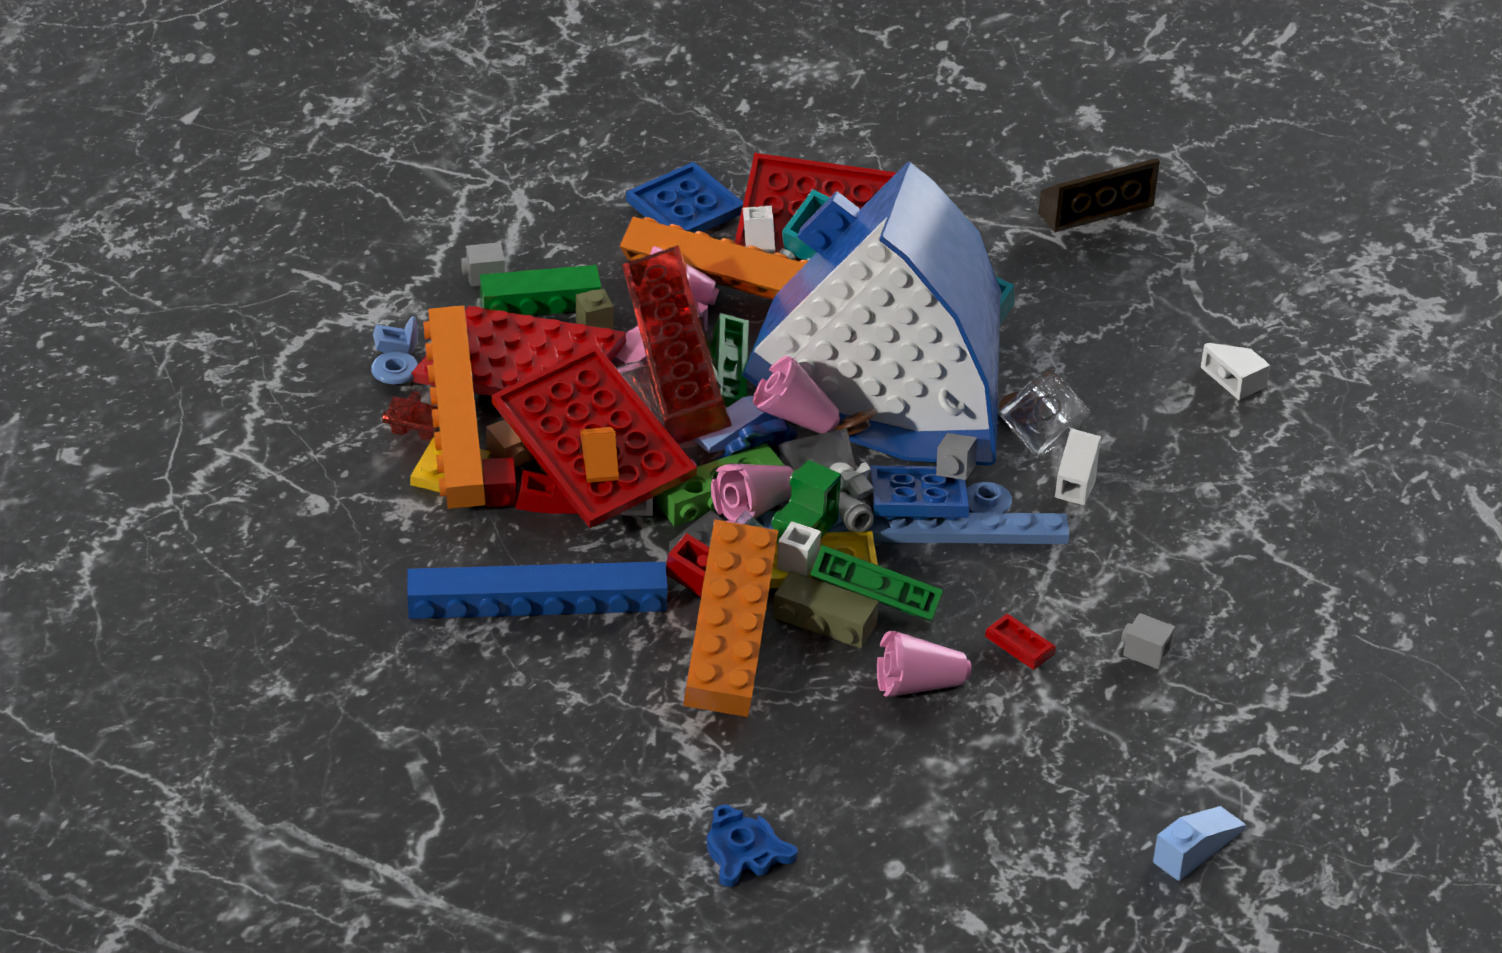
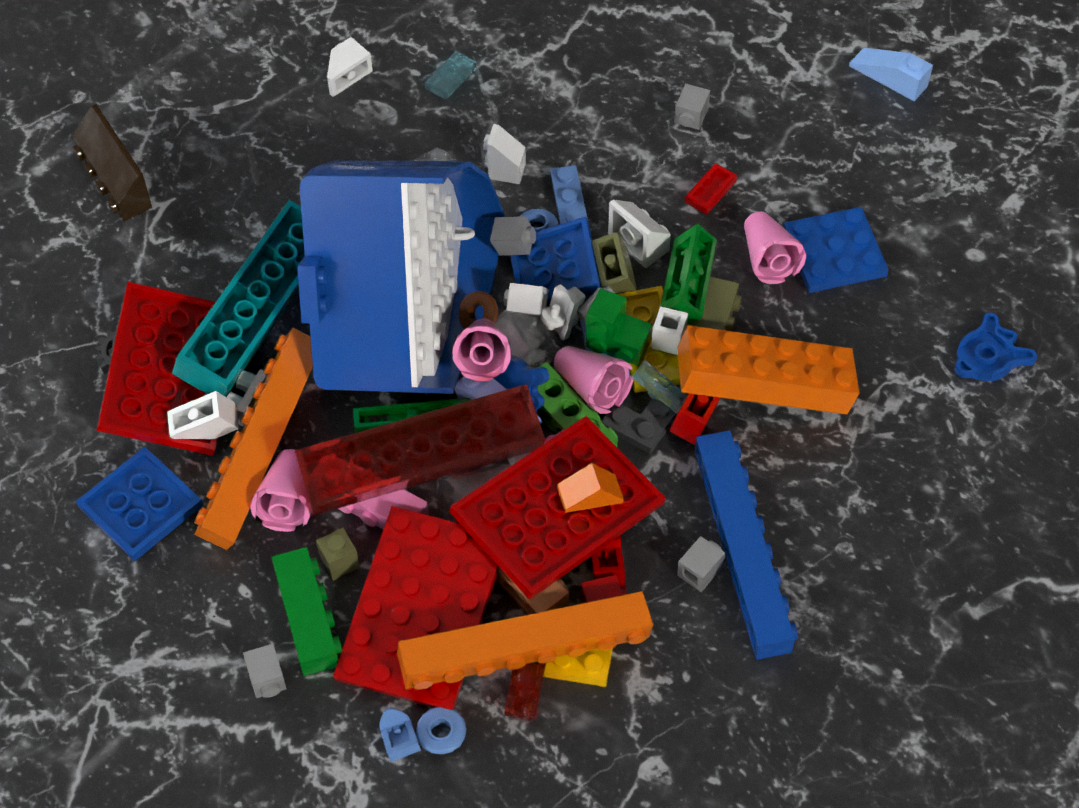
camera: 95 degrees left, 15 degrees up
(518, 550) = (701, 563): none -> light grey brick
(867, 449) = (526, 299): none -> white brick
(907, 536) = (614, 263): none -> olive brick
(917, 738) = (838, 249): none -> blue plate
(956, 557) = (640, 233): none -> white slope
(1223, 455) = (450, 75): none -> clear light blue plate

